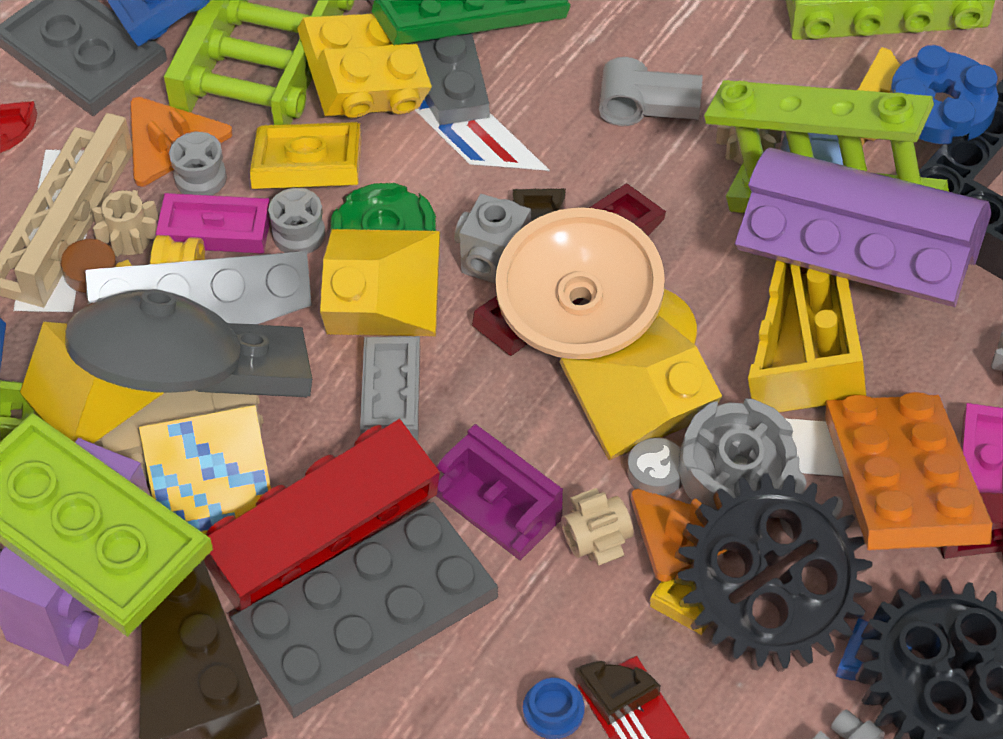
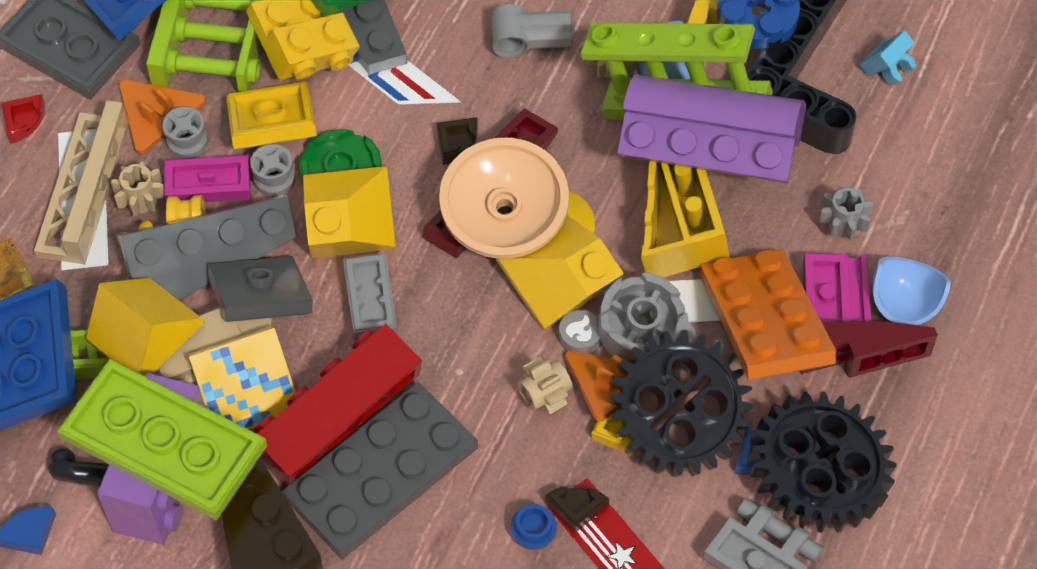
camera: 10 degrees left, 5 degrees up
(83, 256) = (111, 222): dark orange tile -> none
(153, 342) = (187, 289): dark grey dish -> none
(486, 234) = (426, 165): light grey brick -> none
(499, 492) = (466, 368): magenta hinge -> none

